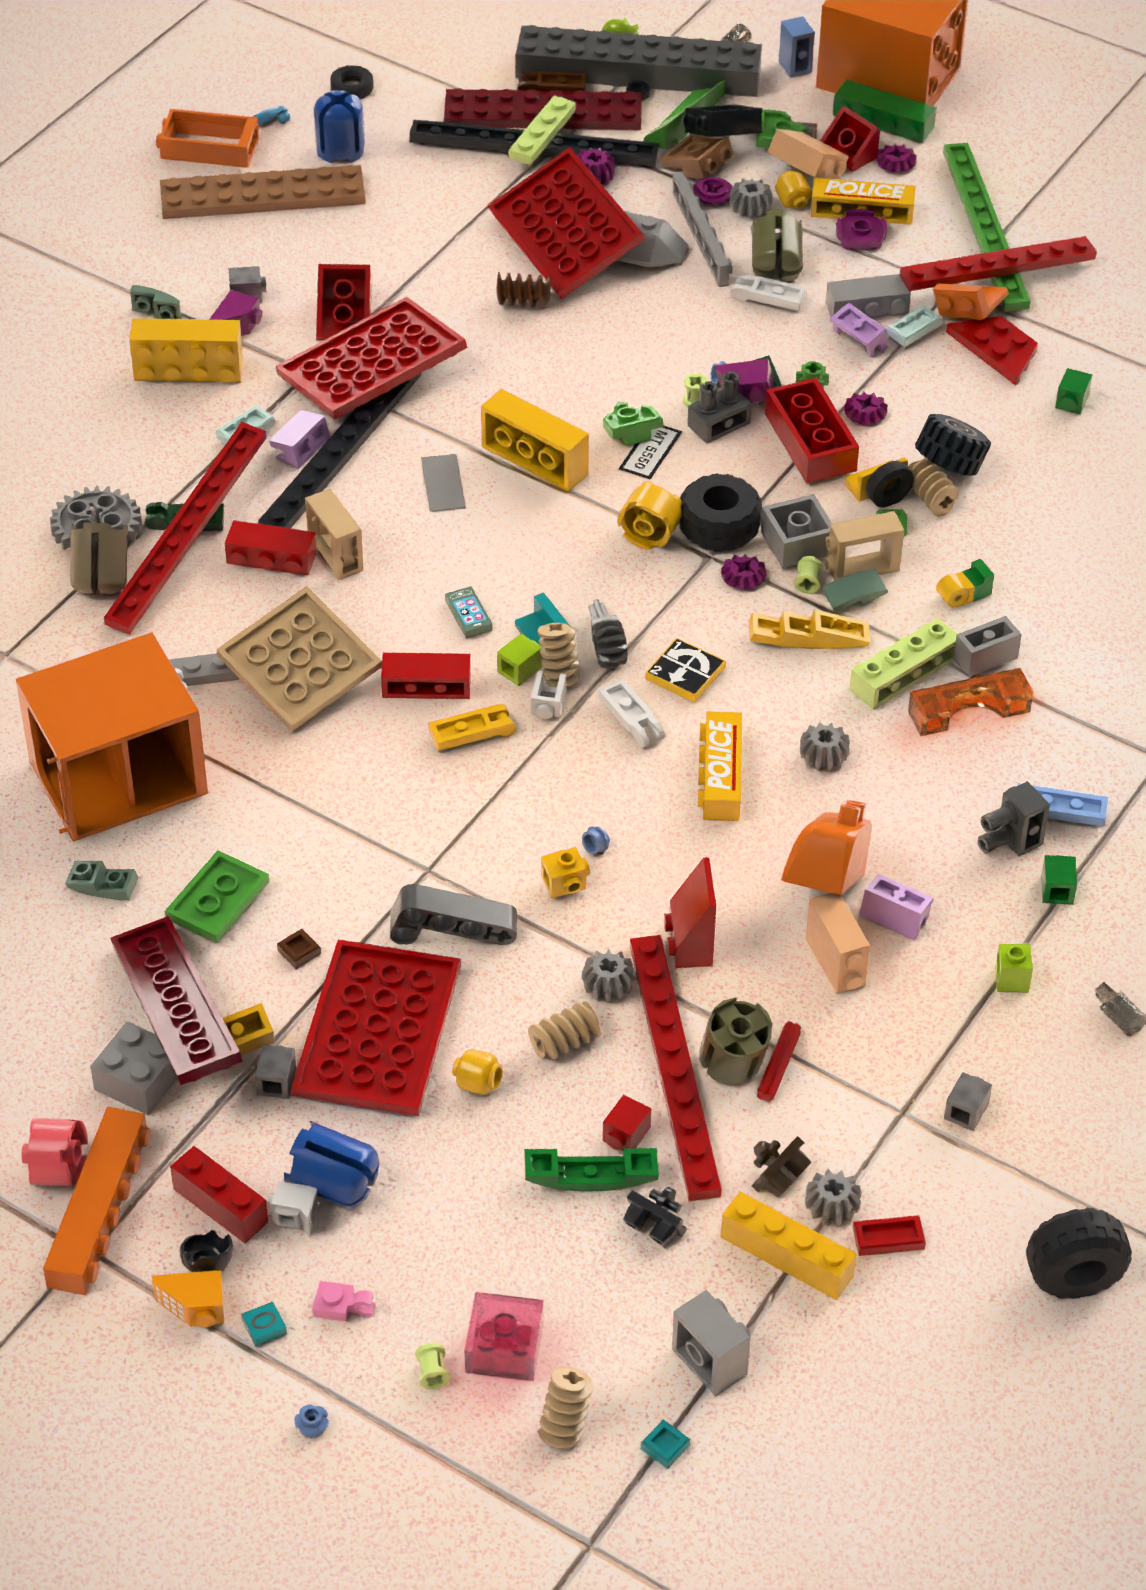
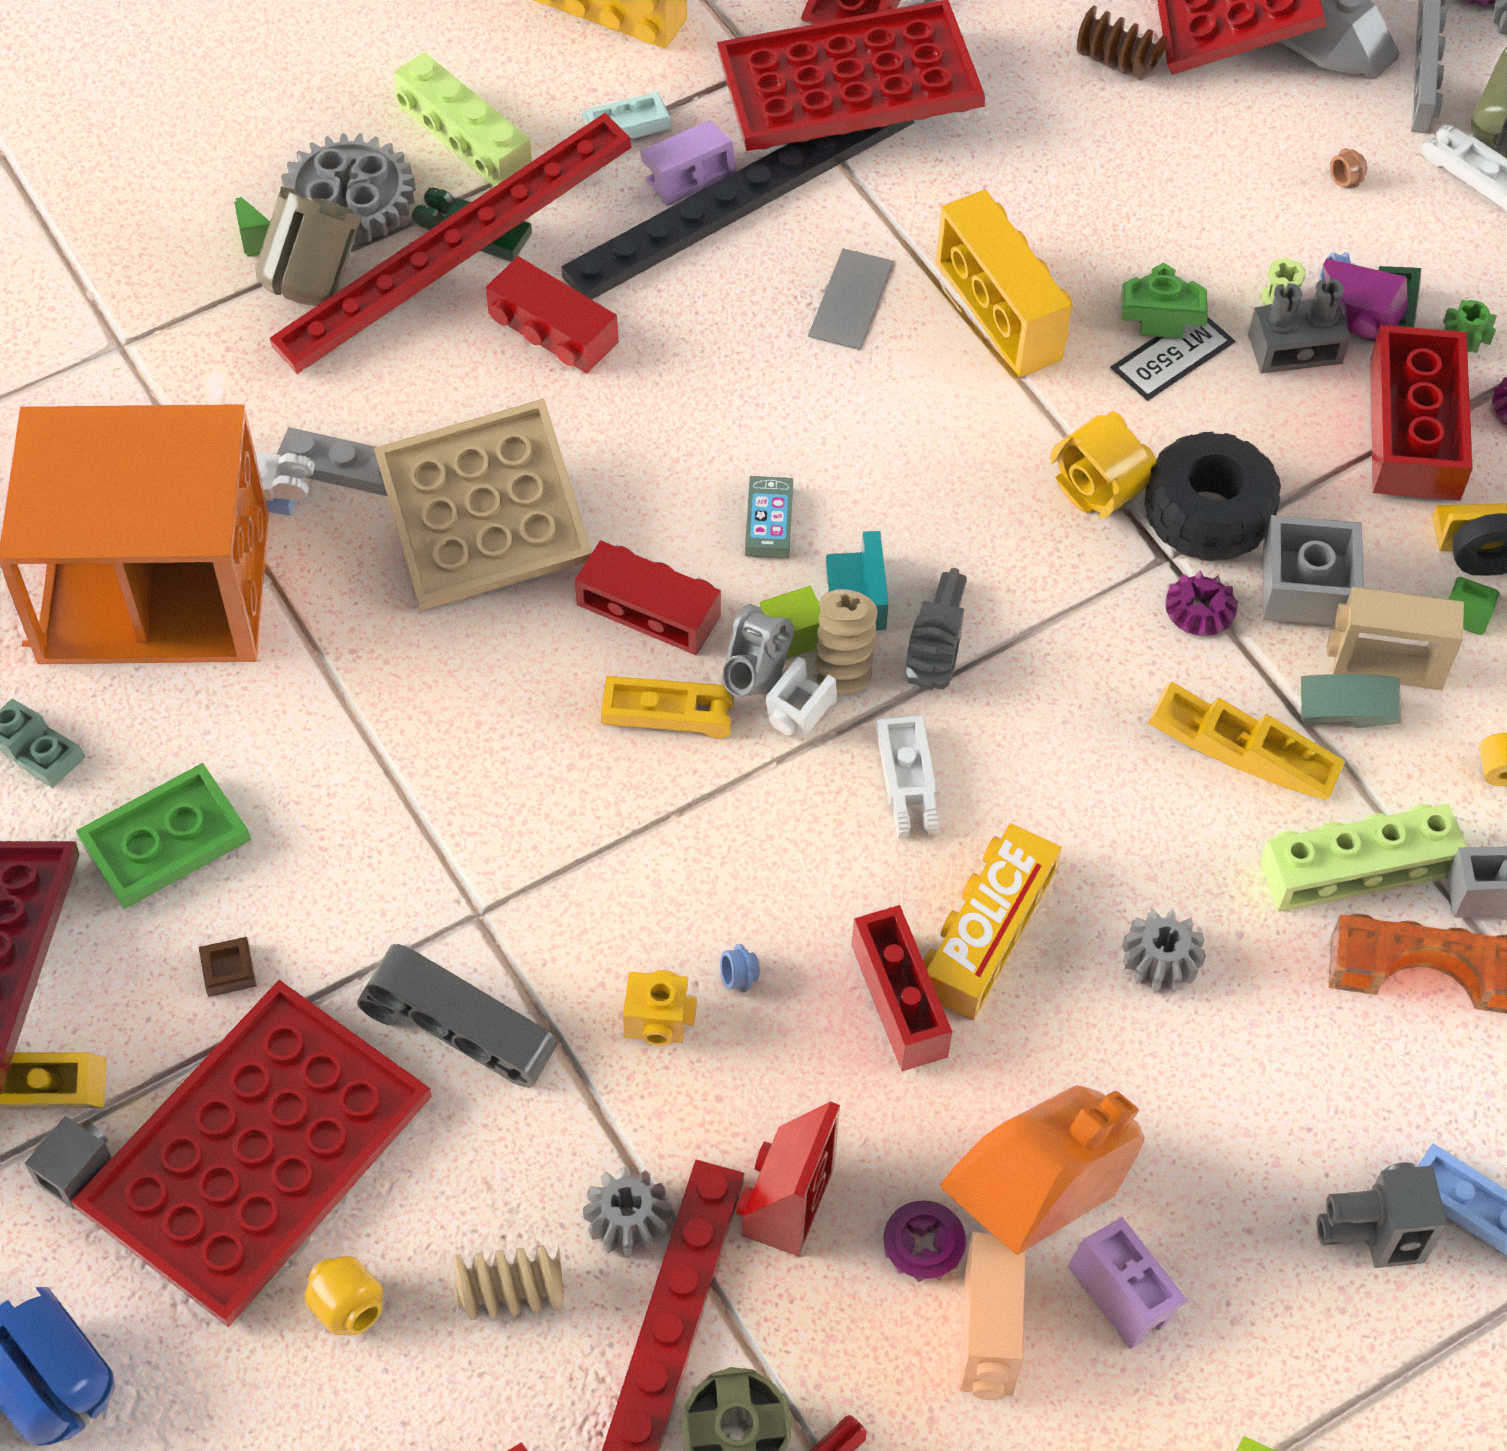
camera: 25 degrees right, 10 degrees up
(50, 562) = (251, 226): none -> bright green slope
(145, 460) = (461, 119): none -> yellowish green brick
(336, 533) = (641, 327): tan window -> none
(511, 674) = (756, 654): none -> light grey piece
(685, 670) = (1028, 733): tile -> none
(694, 813) = (901, 988): none -> red brick
(695, 316) = (1348, 168): none -> nougat plate
(765, 925) = (922, 1218): none -> magenta gear
(809, 570) = (1290, 652): yellowish green bush -> none
(1059, 879) = (1412, 1346): green brick -> none

